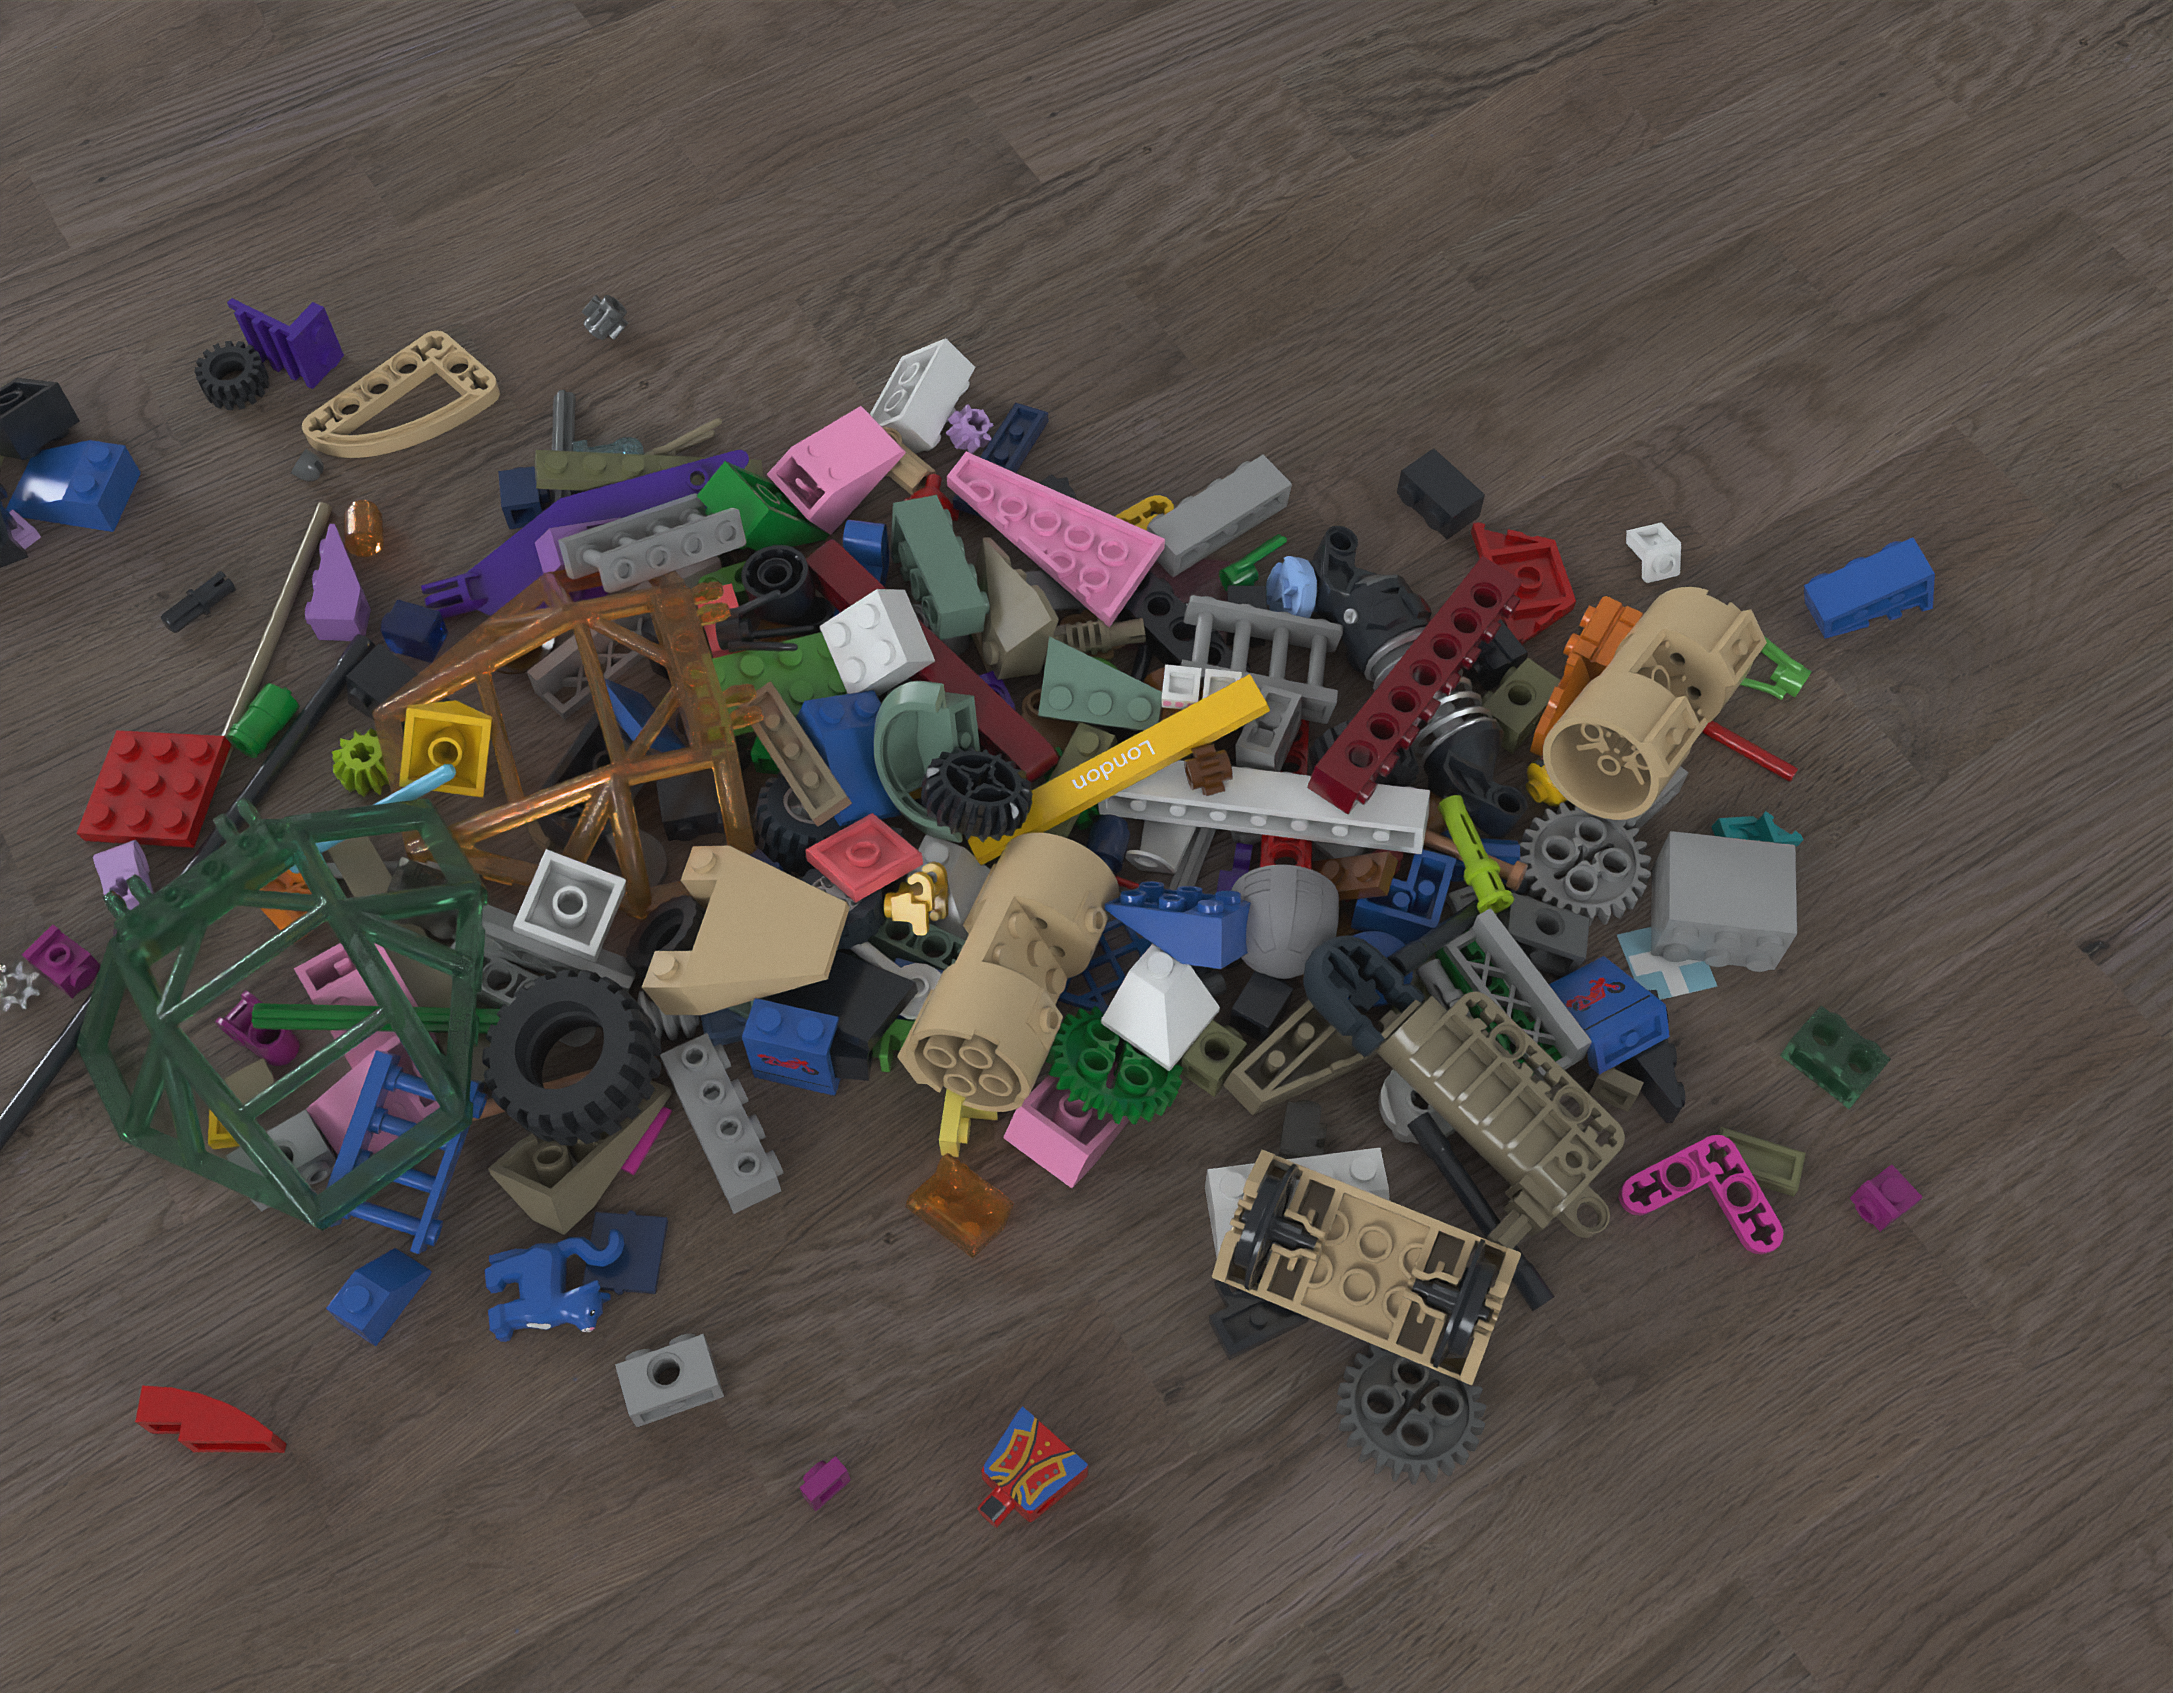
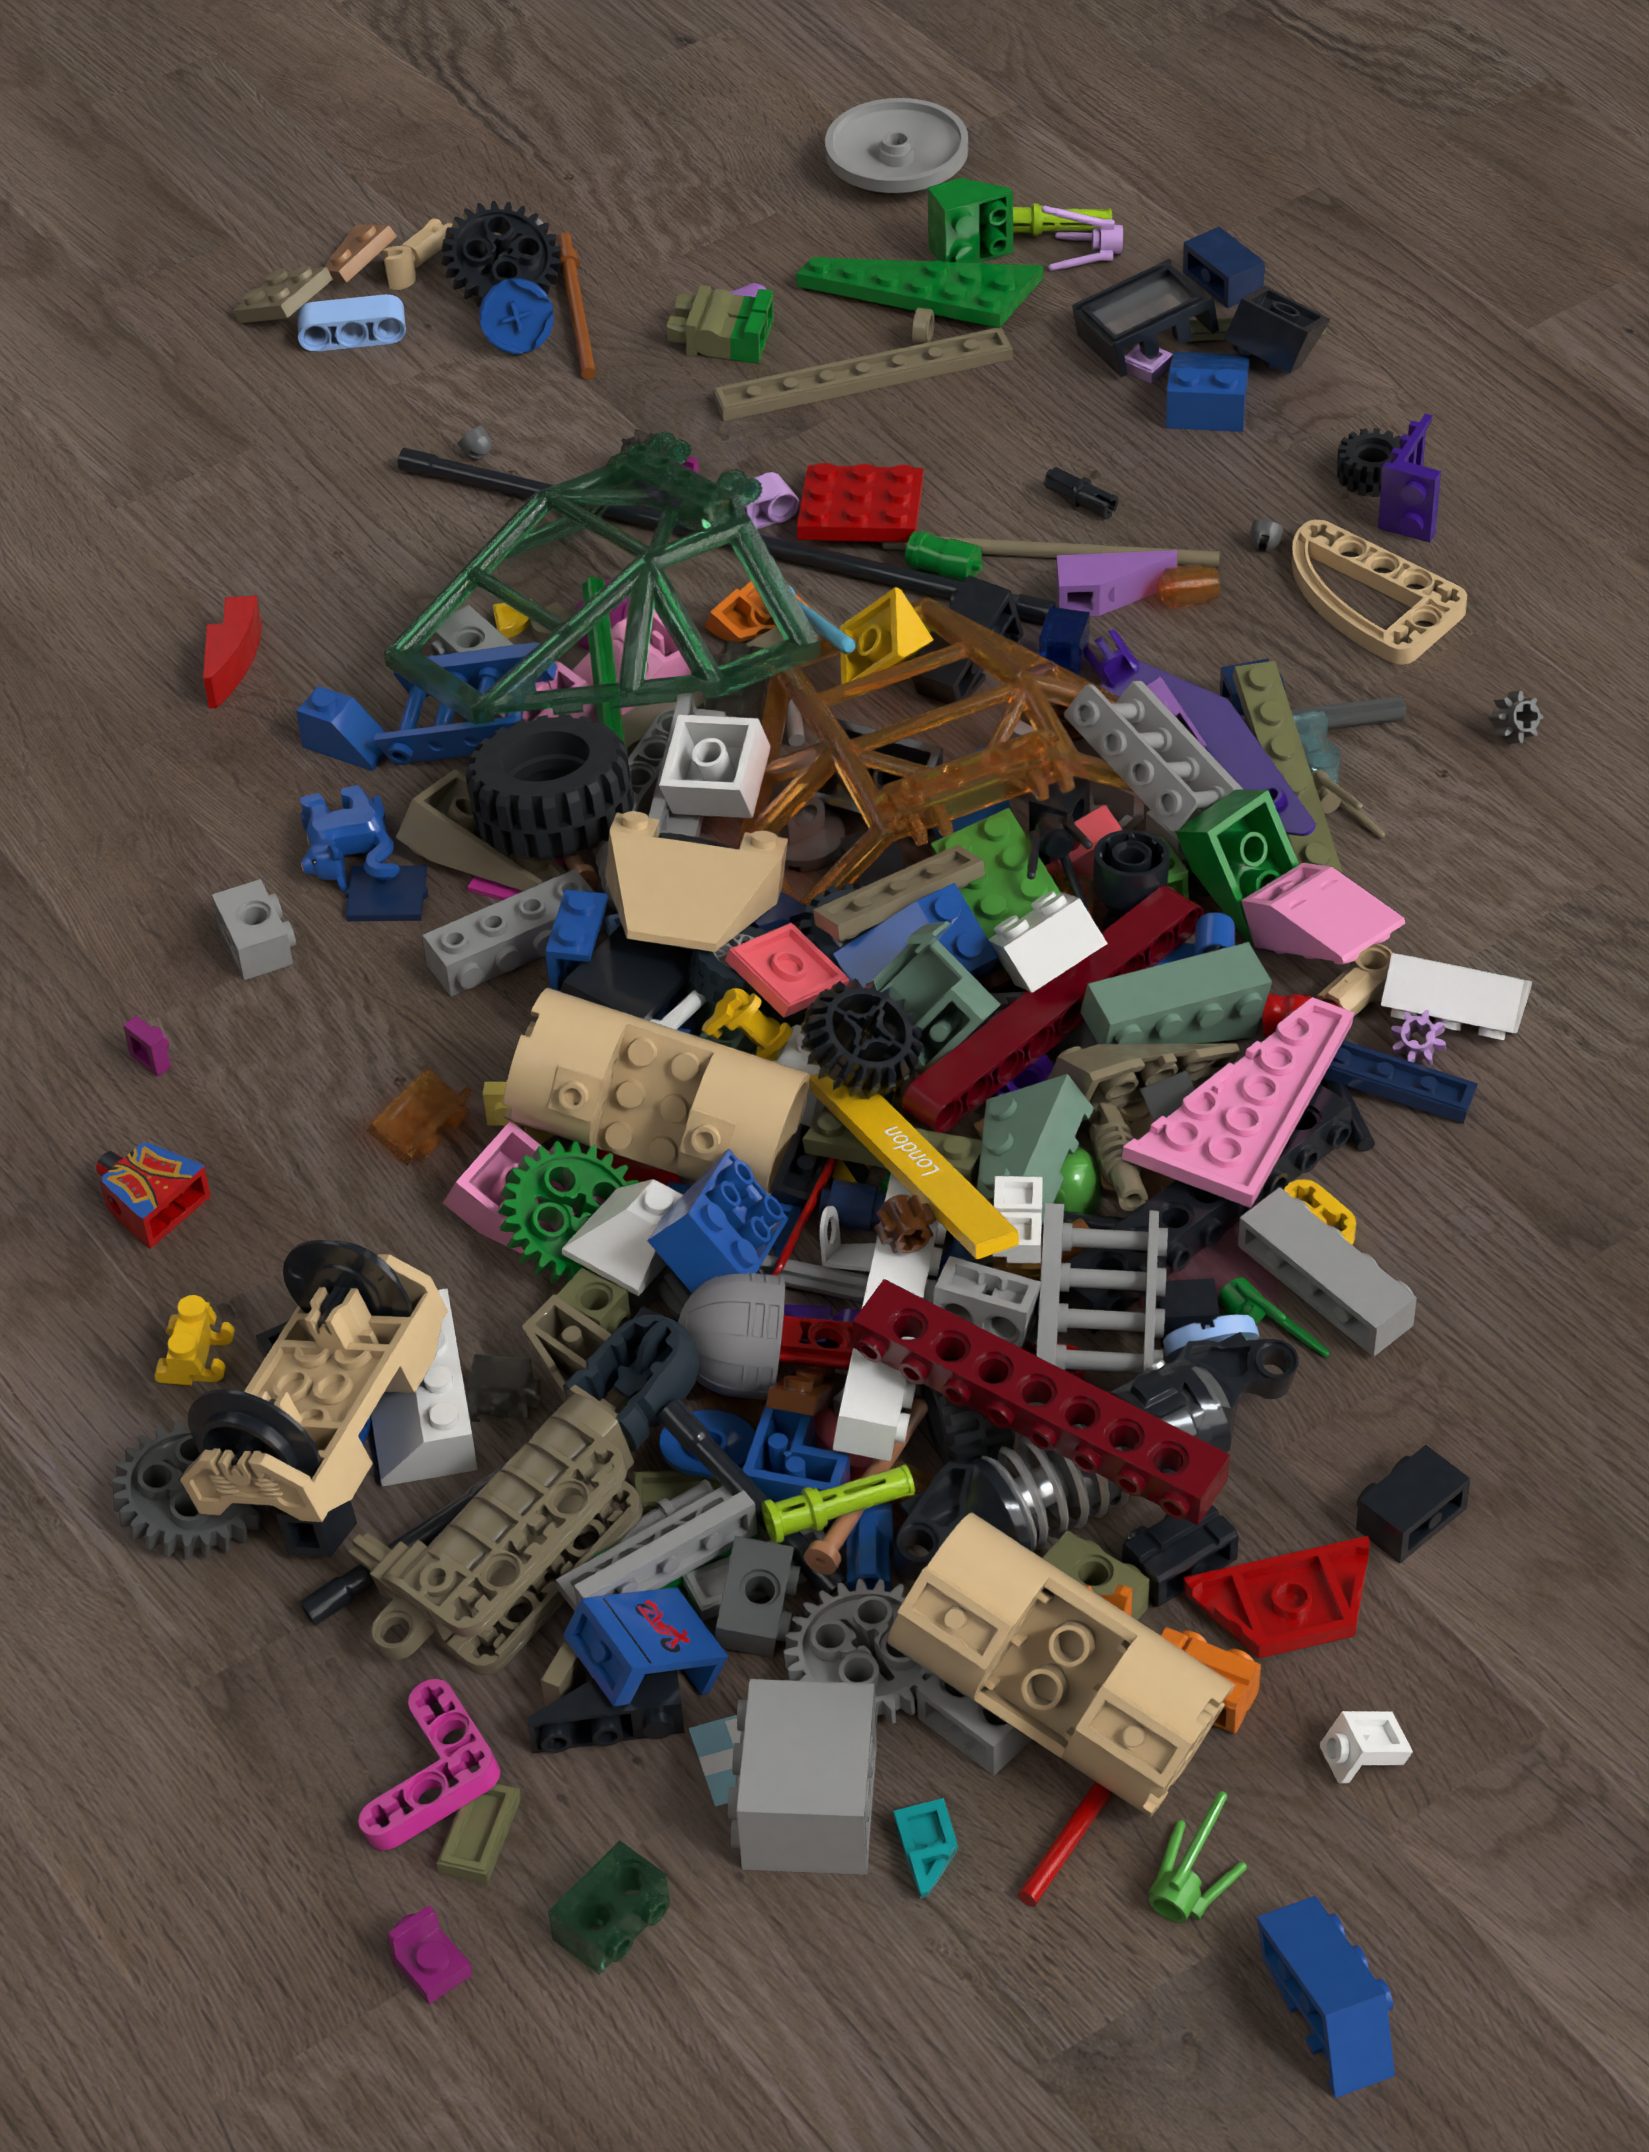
camera: 90 degrees right, 15 degrees down
(1233, 1415) = (191, 1343): none -> yellow piece

